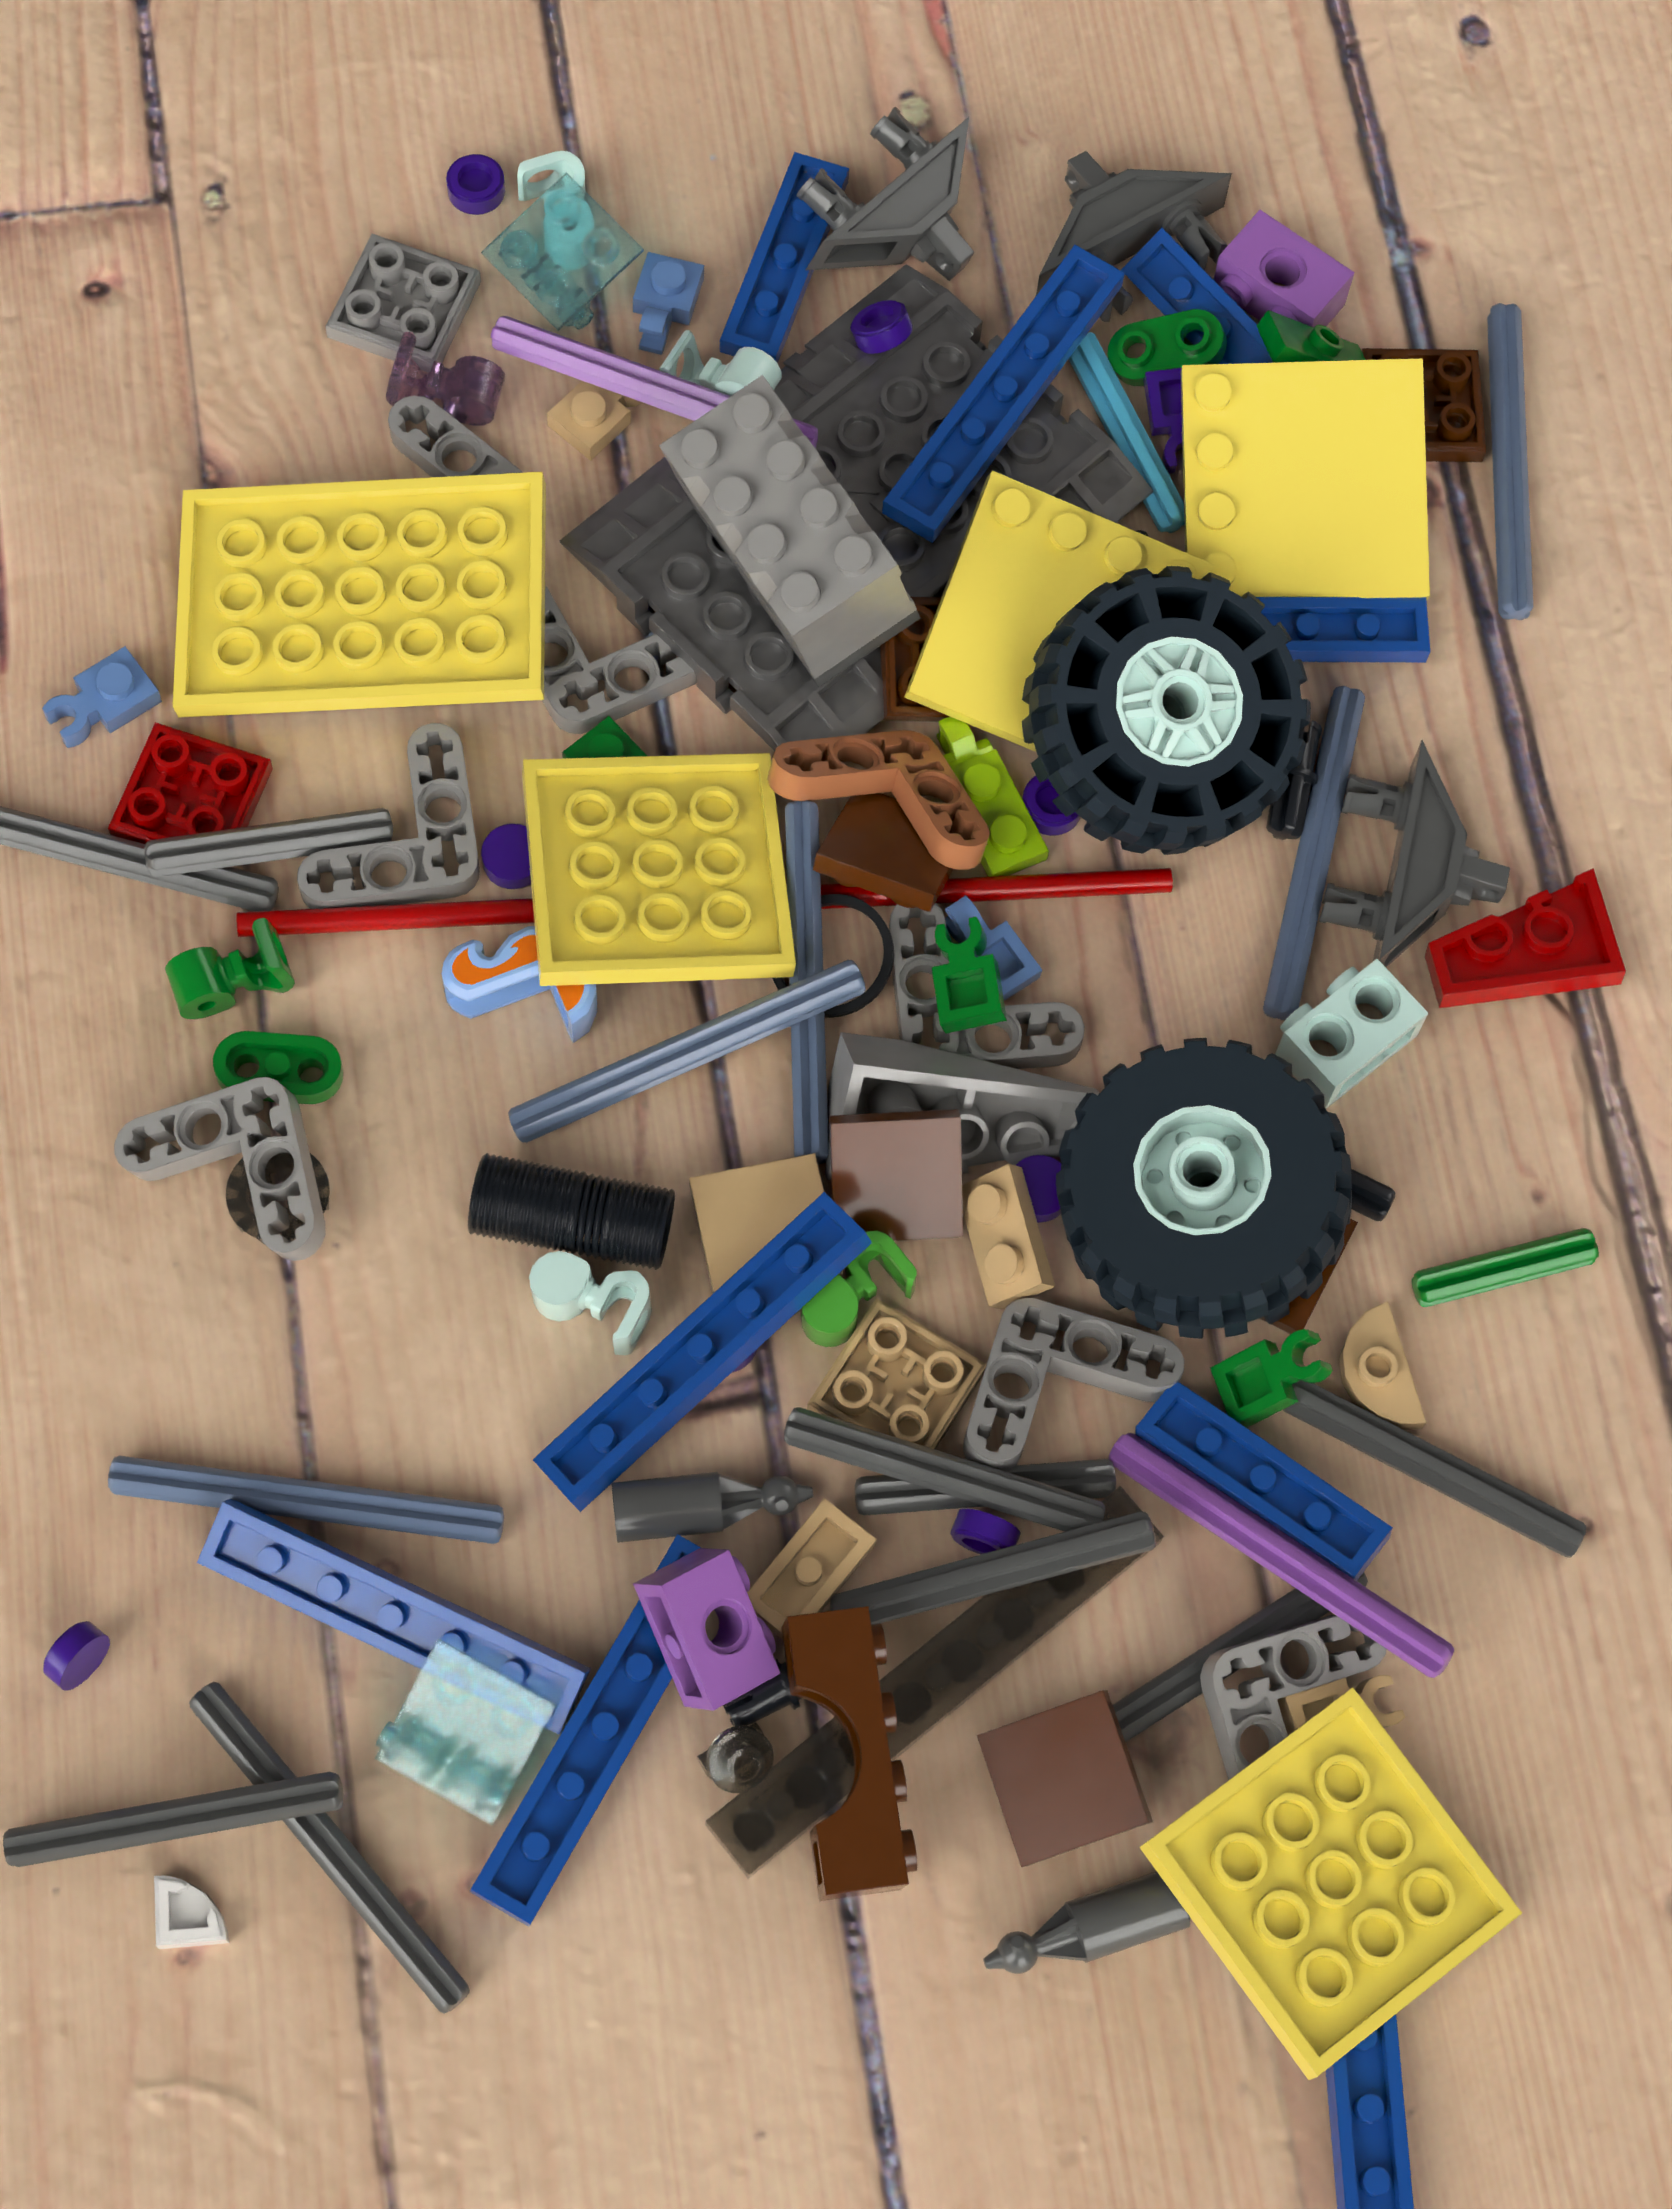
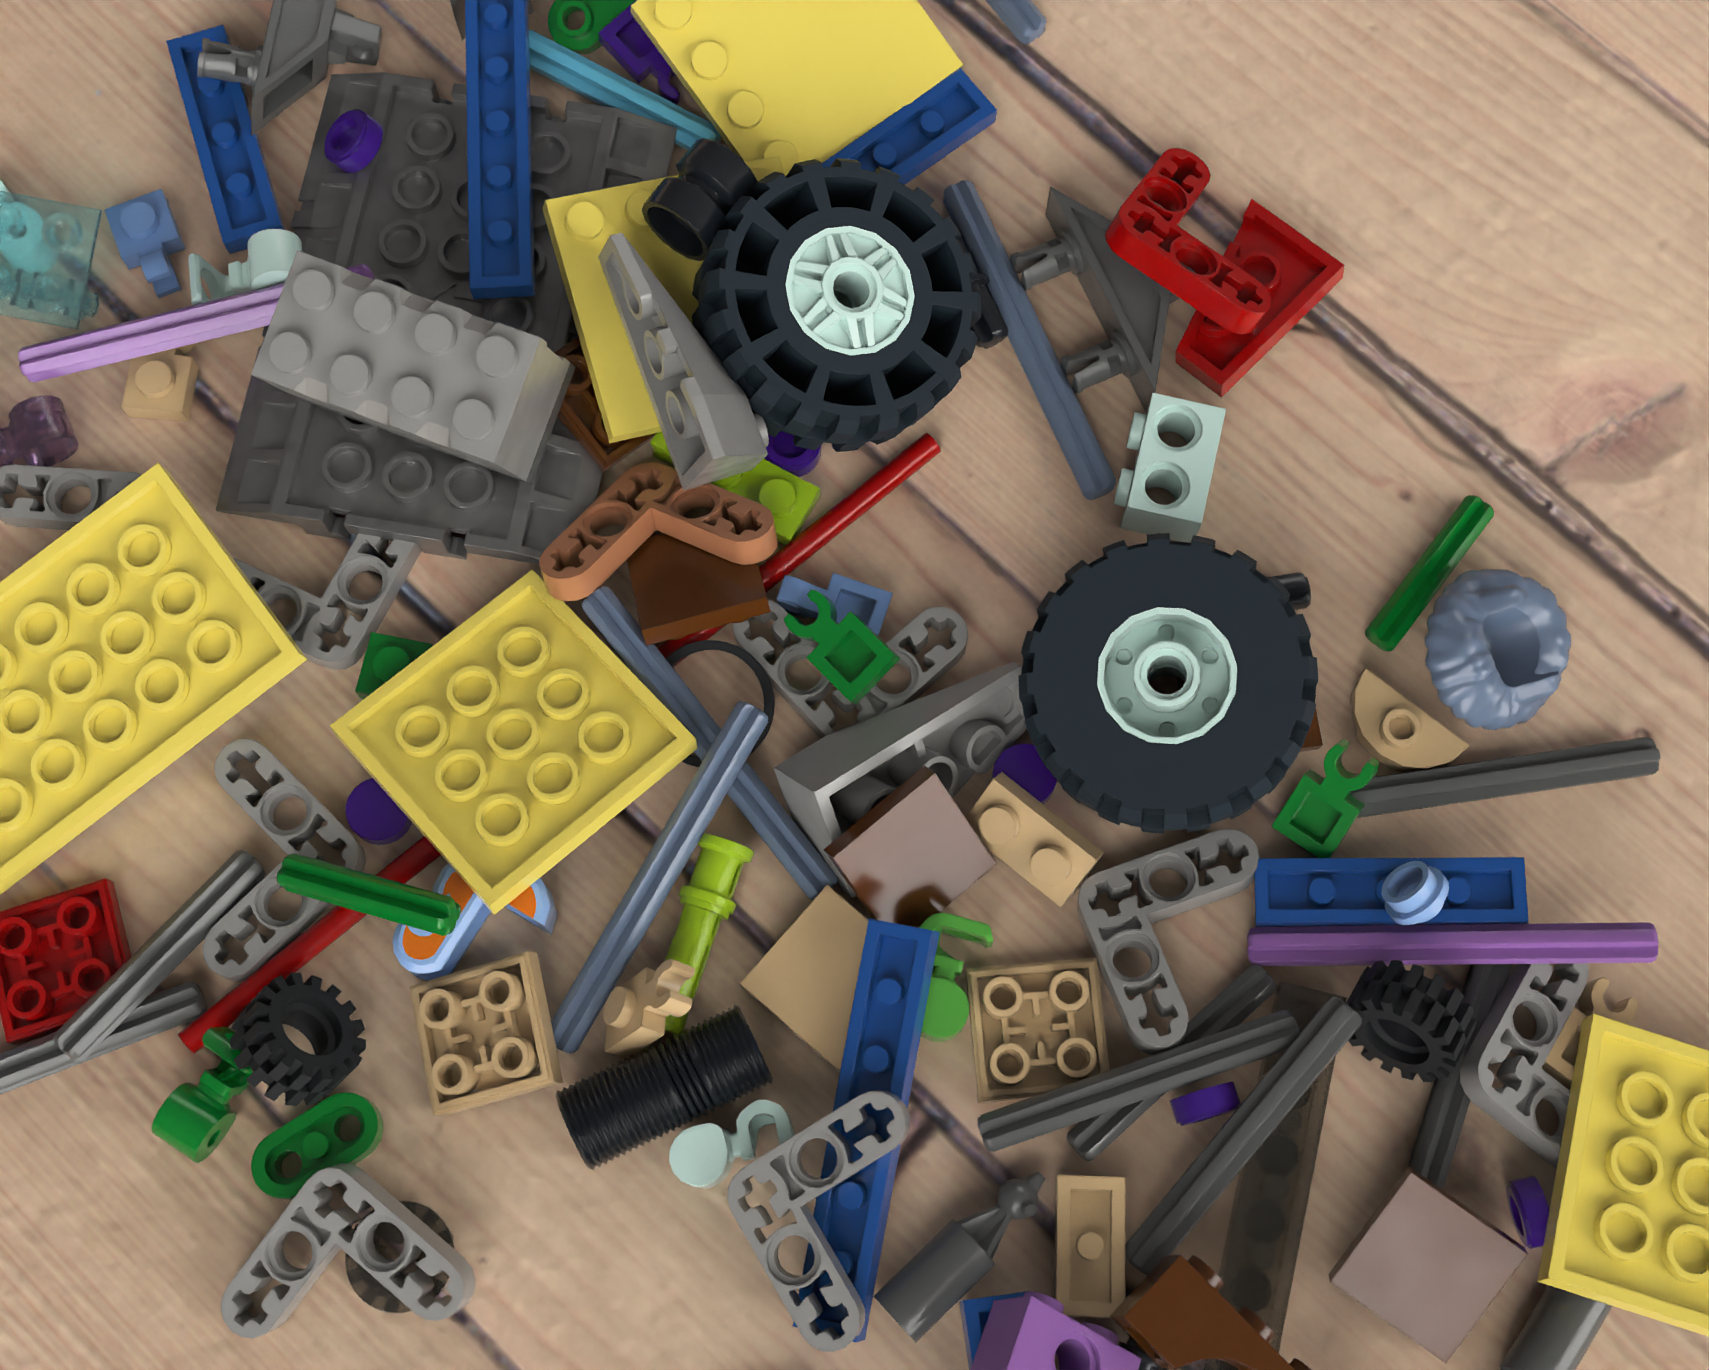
camera: 30 degrees left, 5 degrees up
(300, 981) = (281, 1062): none -> black tyre
(457, 904) = (369, 894): none -> green axle
(466, 1076) = (485, 1034): none -> tan tile
(596, 1137) = (640, 1006): none -> tan plate
(613, 1354) = (798, 1188): none -> light grey beam
(709, 1102) = (705, 905): none -> lime pin
(993, 710) = (693, 397): none -> light grey wedge
(1105, 551) = (694, 206): none -> black wheel
(1185, 1794) = (1528, 1210): none -> dark purple tile
(1196, 1583) = (1410, 1020): none -> black tyre
(1276, 1485) = (1414, 893): none -> light blue plate
(1471, 821) = (1156, 244): none -> red beam
(1507, 1359) = (1496, 647): none -> sand blue piece

